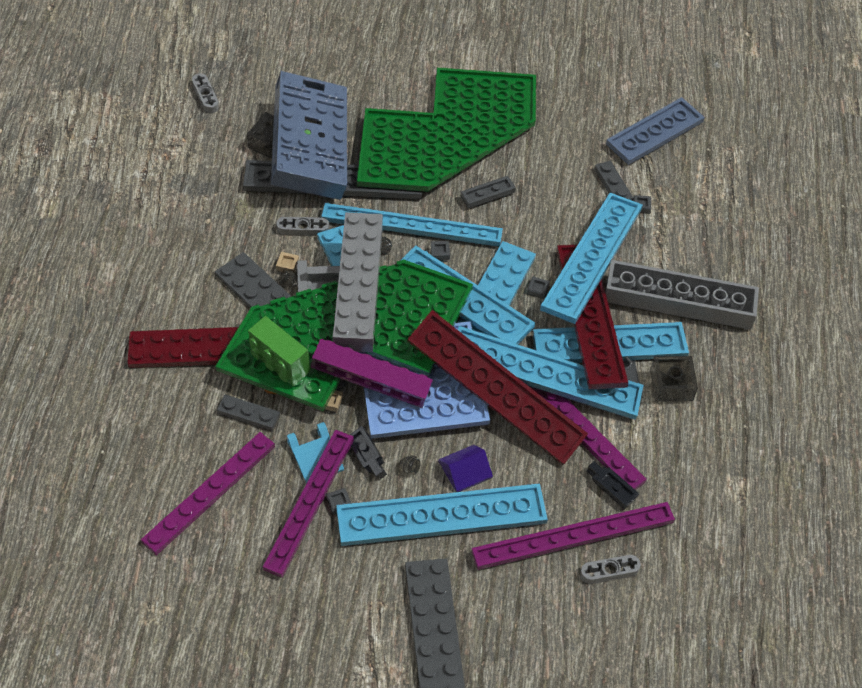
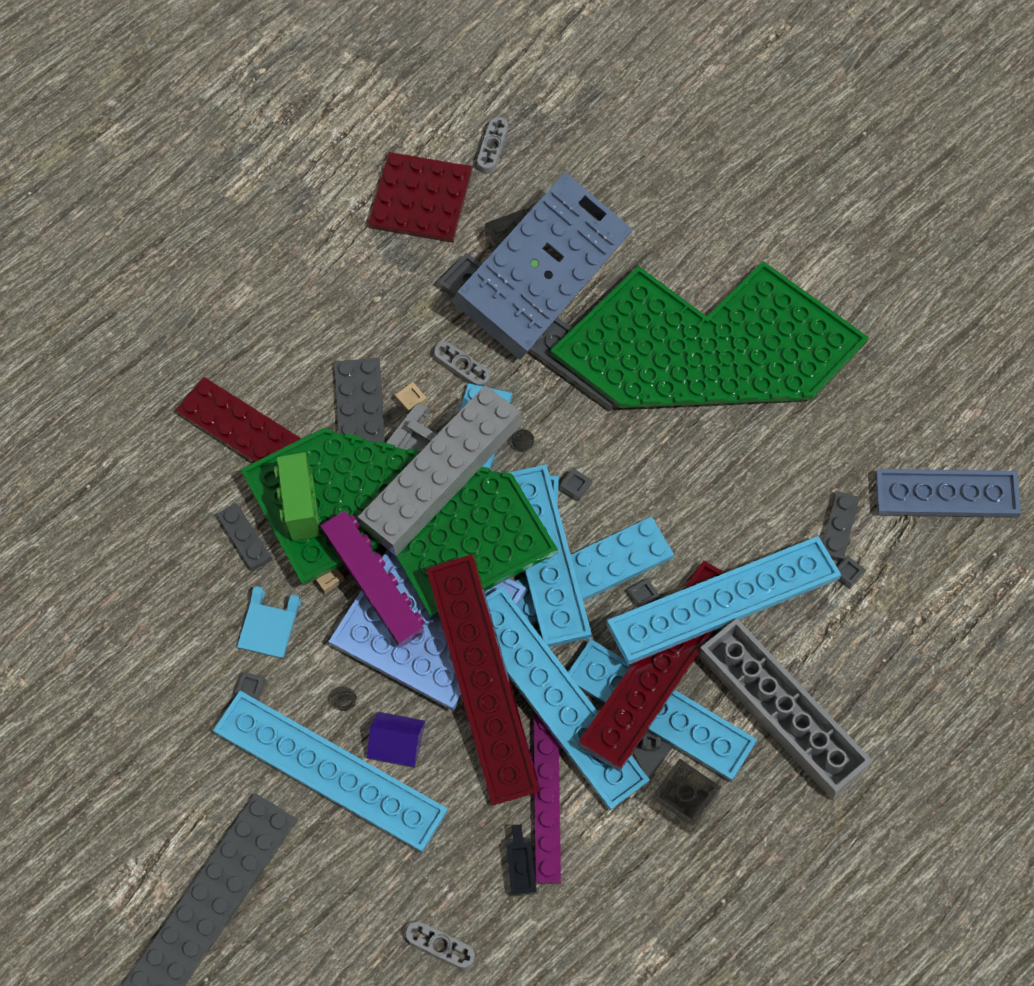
camera: 45 degrees right, 10 degrees up
(183, 147) = (420, 197): none -> dark red plate
(207, 493) = (144, 594): magenta plate -> none
(308, 504) = (218, 669): magenta plate -> none
(367, 452) = (314, 656): black hinge -> none
(422, 225) = (574, 437): medium azure plate -> none
(488, 191) = (687, 448): dark grey plate -> none
(572, 535) = (436, 886): magenta plate -> none

